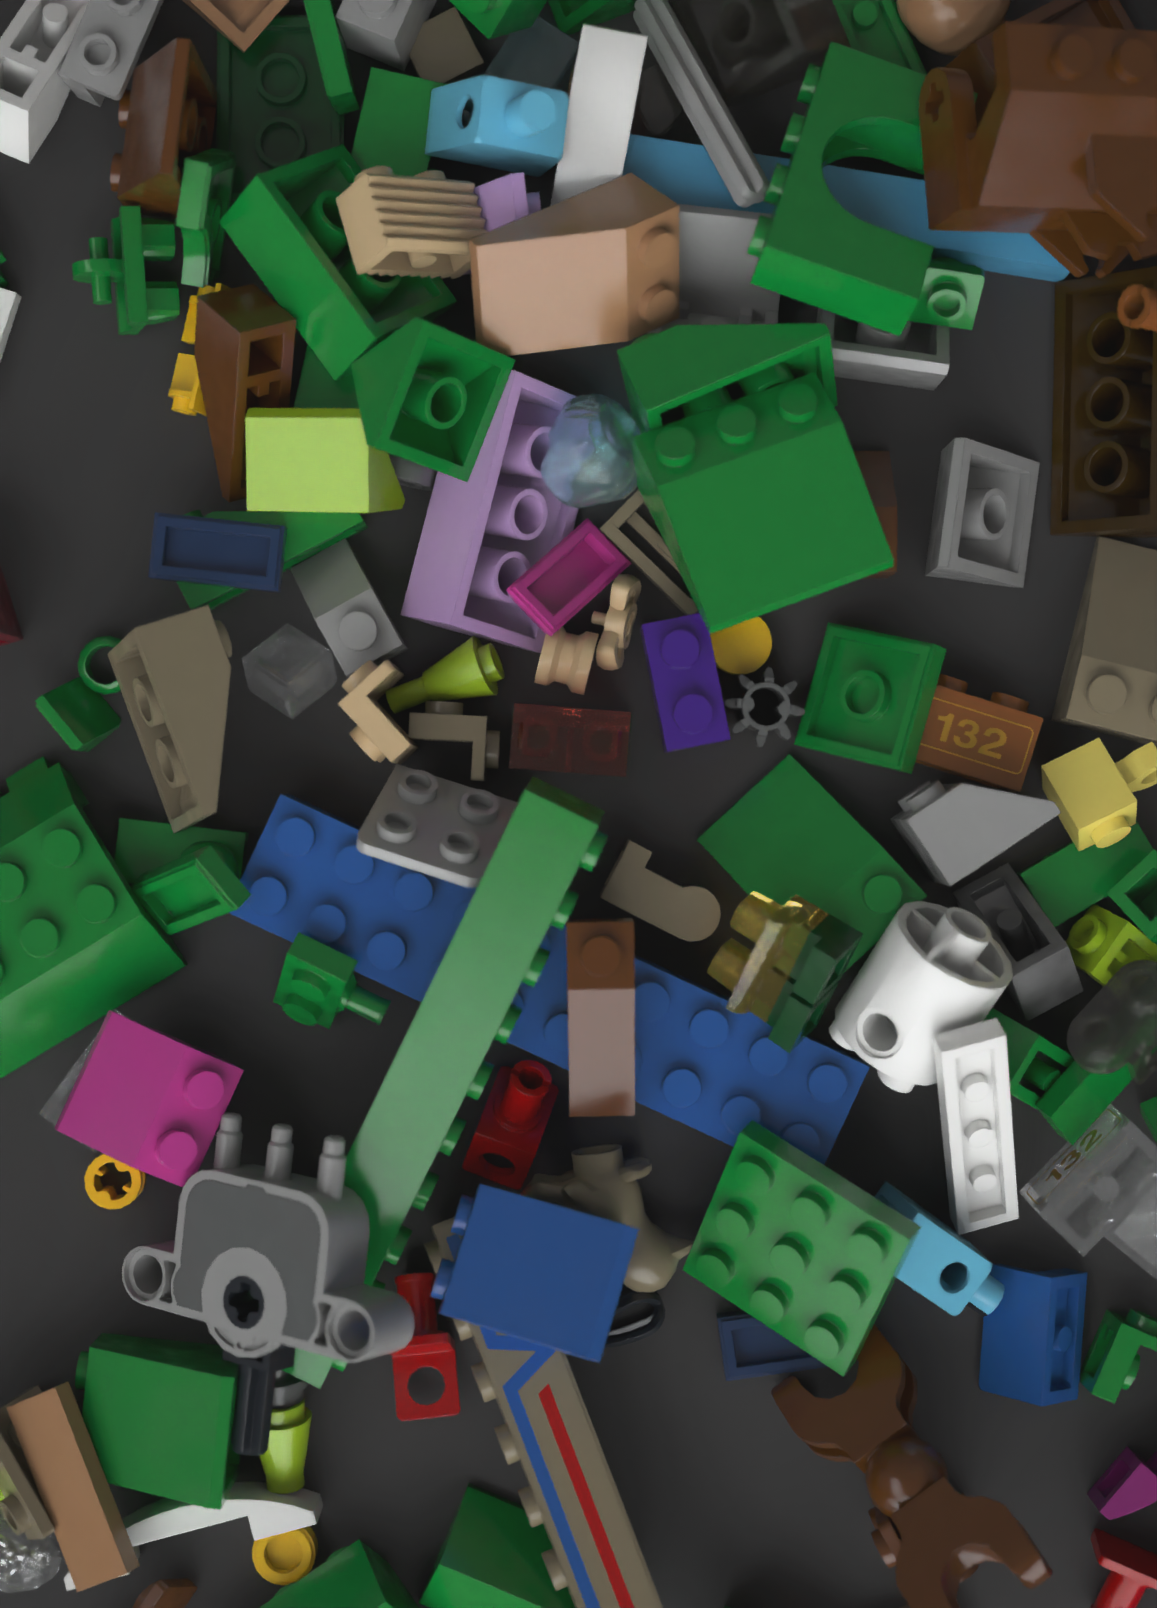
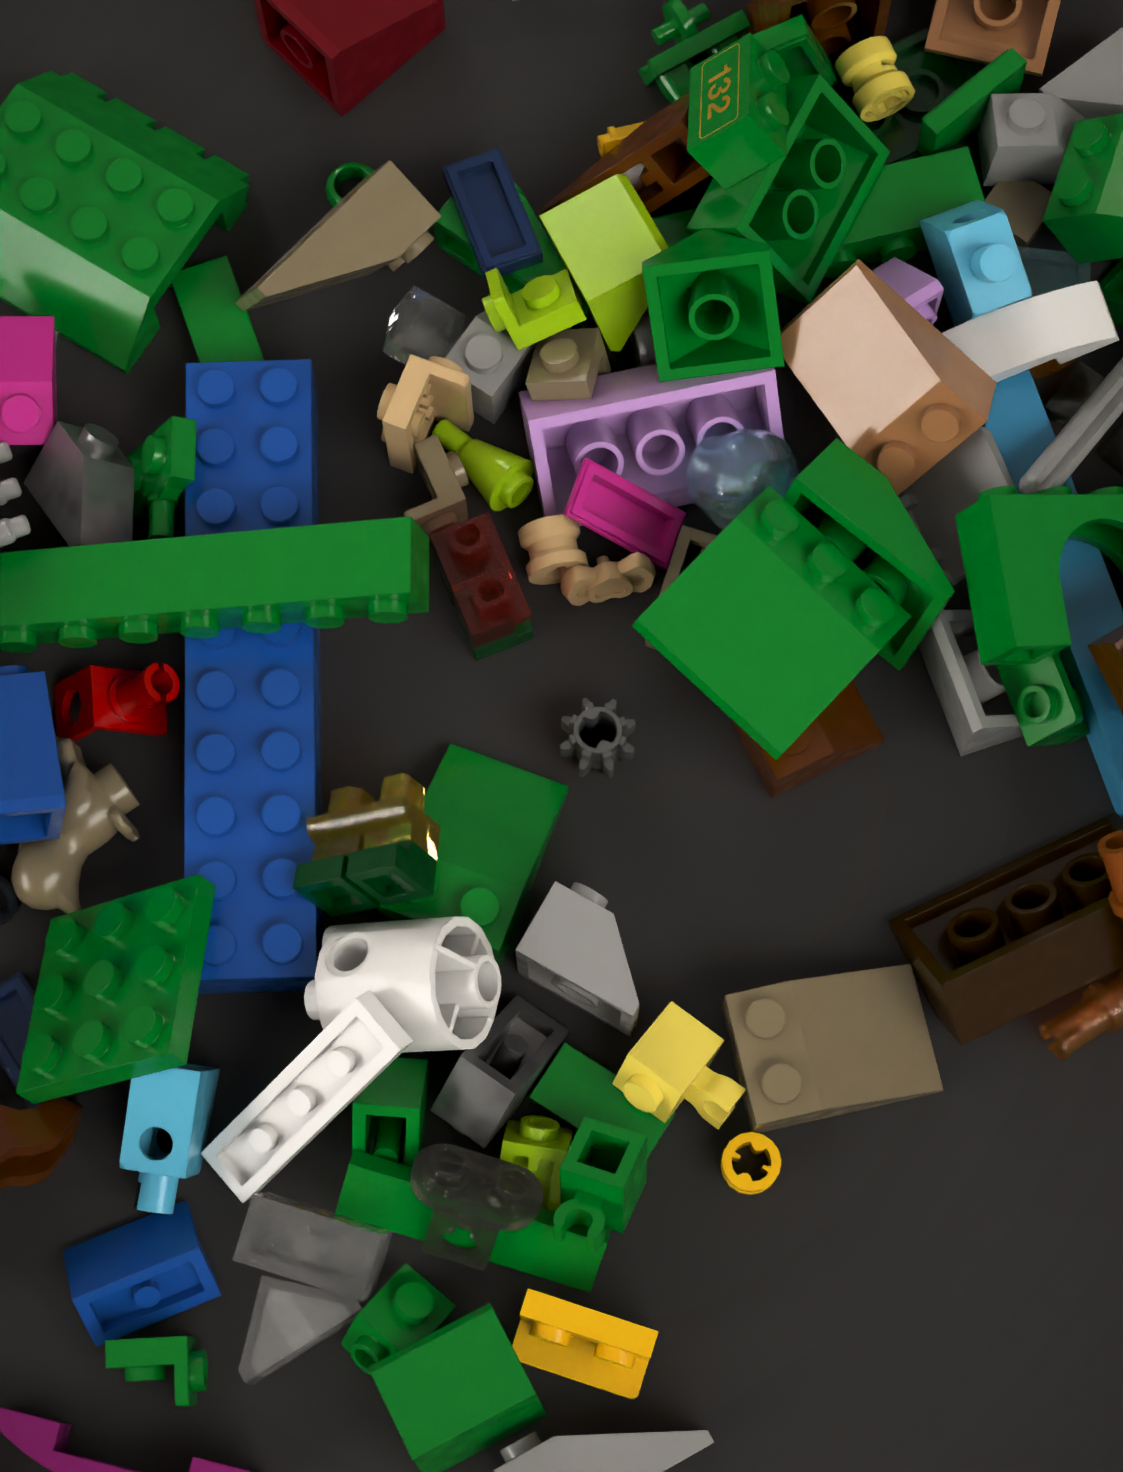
camera: 60 degrees right, 15 degrees down
(78, 715) = (297, 182): green slope -> none
(192, 888) = (195, 328): green tile -> none
(252, 271) = (738, 111): none -> green brick
(255, 117) = (874, 78): none -> light yellow wheel
(307, 1061) = (84, 485): none -> flat silver slope
(339, 561) = (537, 310): none -> lime bracket
(403, 558) = (567, 365): none -> dark tan bracket
(410, 223) = (849, 217): tan brick -> none
(435, 826) = (340, 476): light grey bracket -> none
(601, 1016) = (247, 702): slope -> none
(678, 909) = (378, 725): dark tan leg -> none
(684, 683) = (581, 657): dark purple brick -> none
(742, 646) = (645, 693): yellow tile -> none
(870, 697) = (654, 821): green tile -> none
(979, 737) = (666, 926): dark orange brick -> none
(982, 515) = (871, 843): light grey slope -> none

